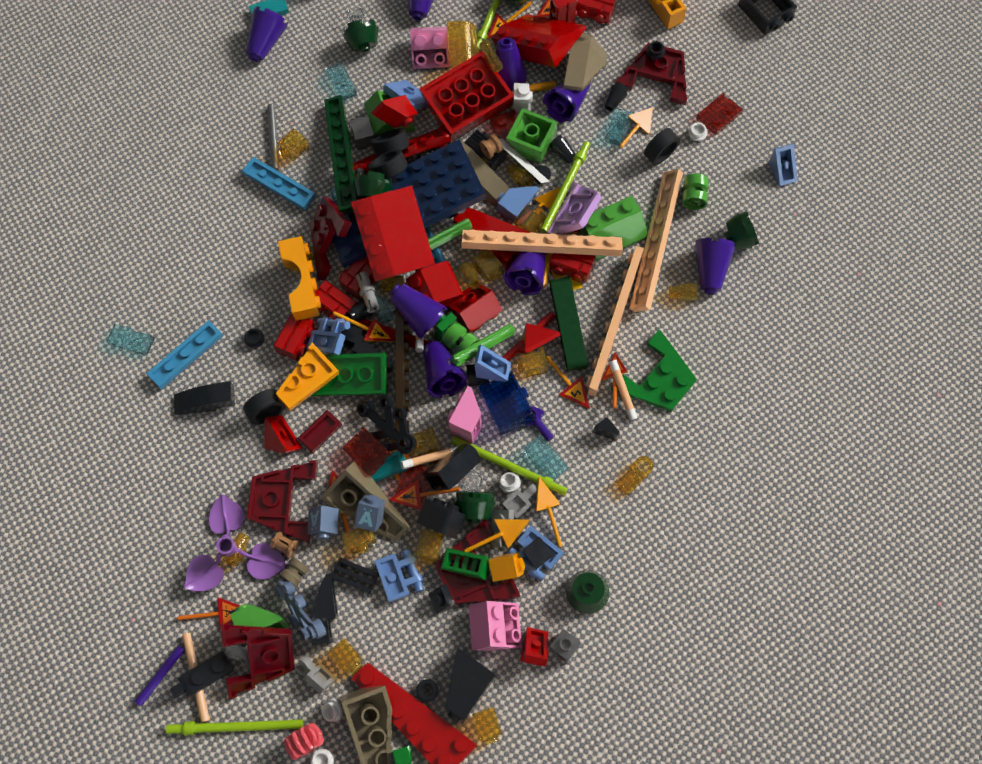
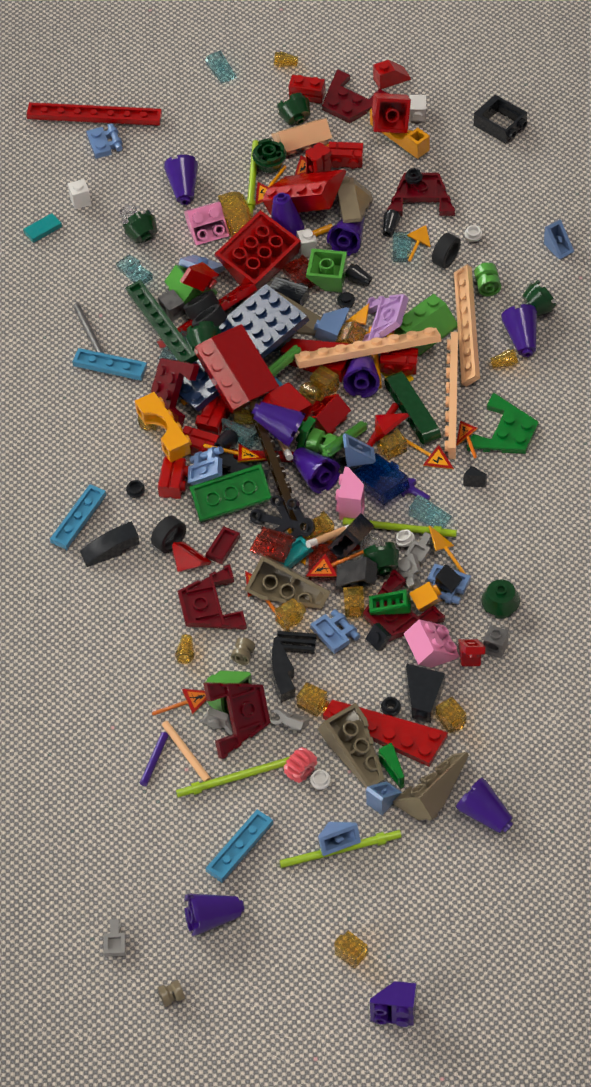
camera: 15 degrees left, 15 degrees down
(130, 340) = (23, 520): clear light blue slope -> none
(202, 676) = (193, 745): black hinge -> none
(203, 571) = (166, 628): medium lavender plant -> none
(264, 32) = (49, 245): dark purple cone -> none
(284, 545) = (226, 634): medium nougat bush -> none
(293, 145) = (111, 330): clear yellow brick -> none
(308, 377) = (200, 499): light orange wing -> none
(310, 628) = (241, 663): sand blue plant -> none
(323, 522) = (254, 606): sand blue brick -> none
(332, 710) = (315, 740): white plate -> none
(367, 292) = (228, 422): light grey pin -> none
(370, 513) = (294, 584): sand blue brick -> none
(490, 146) = (295, 284): medium nougat wheel -> none
(491, 55) = (270, 211): clear yellow axle -> none
(508, 529) = (417, 568): light orange piece -> none
(520, 176) = (326, 305): clear yellow cone -> none
(523, 161) = (325, 291): white sticker -> none
(579, 159) = (375, 279): lime bar -> none
(623, 390) = (477, 443): light nougat bar -> none
(634, 476) = (510, 508): clear yellow piece -> none
(719, 114) = (487, 215): clear red plate -> none

